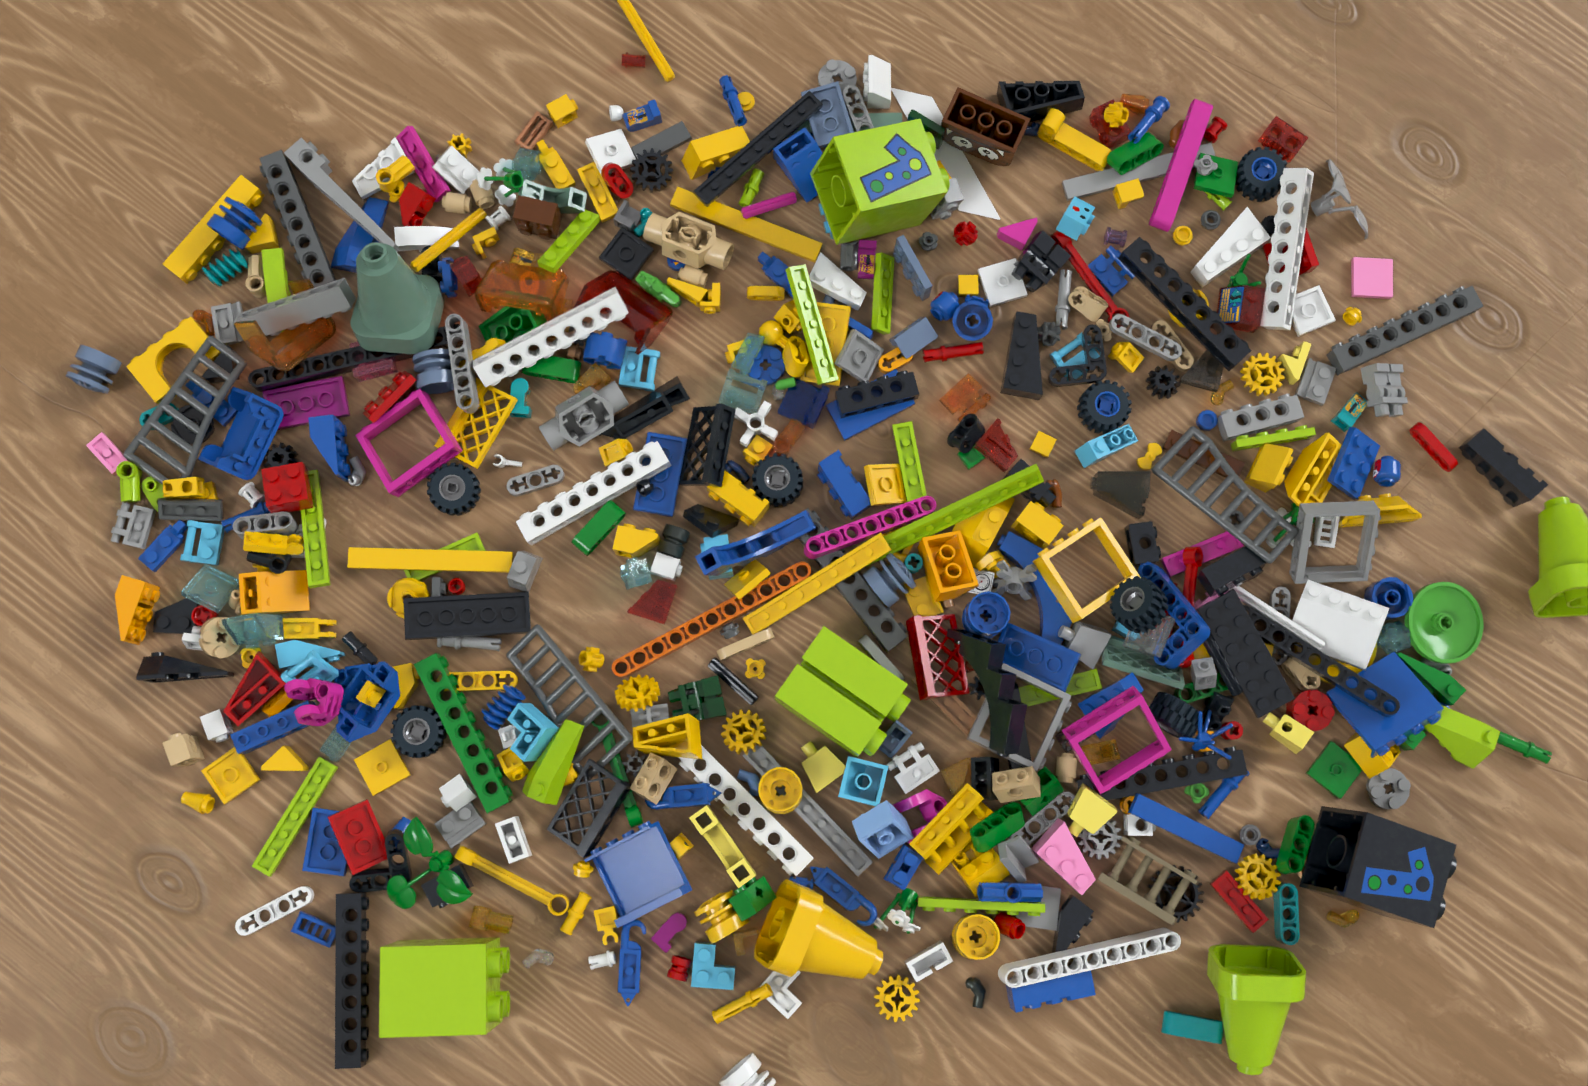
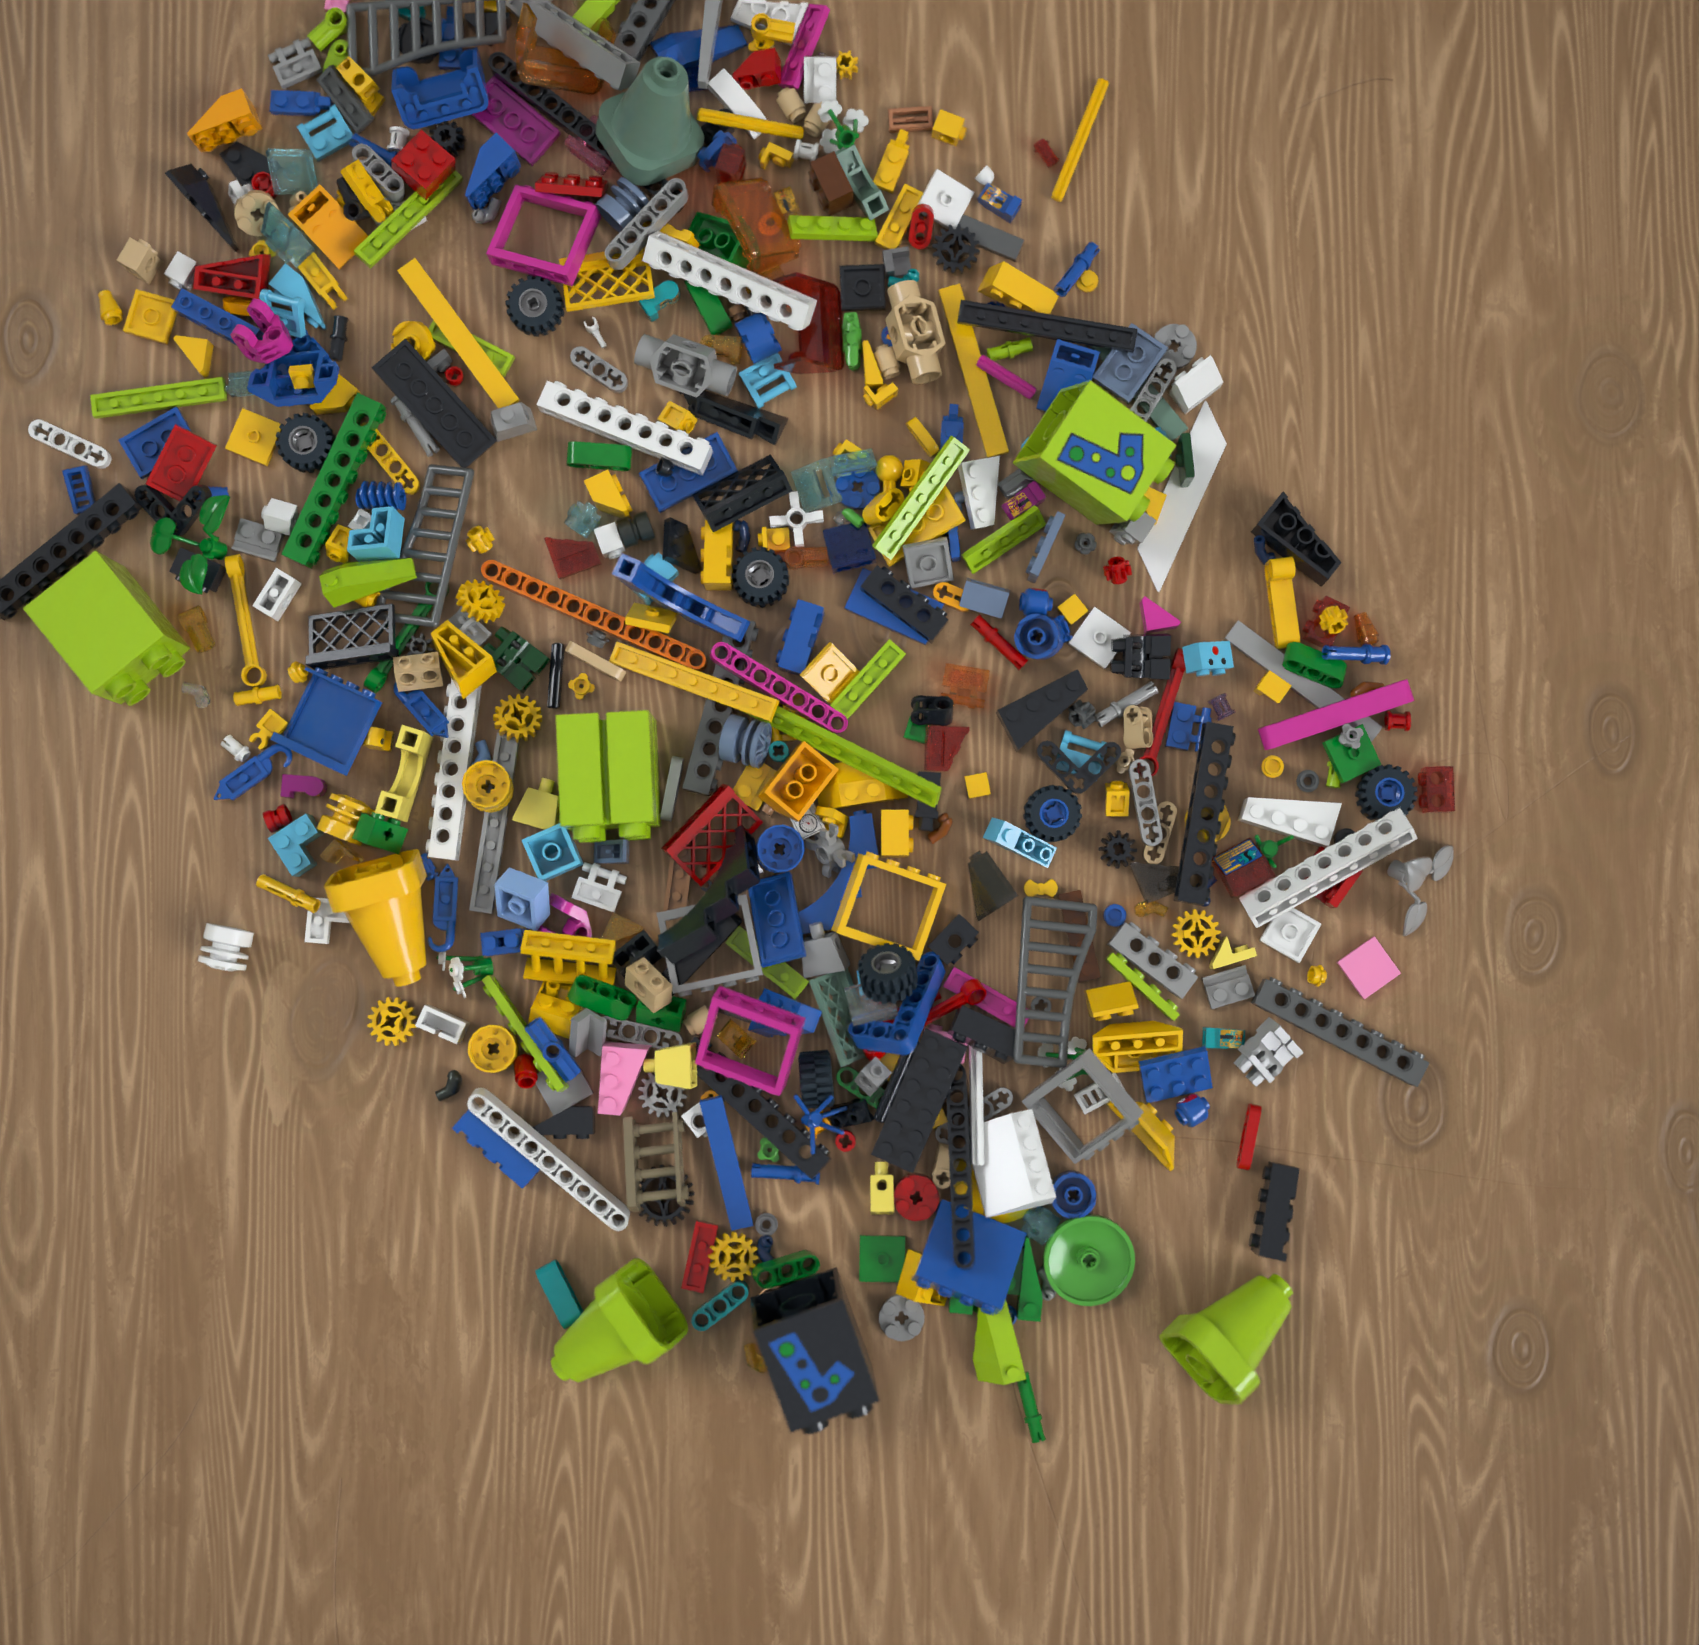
camera: 60 degrees right, 5 degrees up
(528, 163) = (873, 136): clear light blue brick -> none
(983, 128) = (1225, 509): reddish brown brick -> none

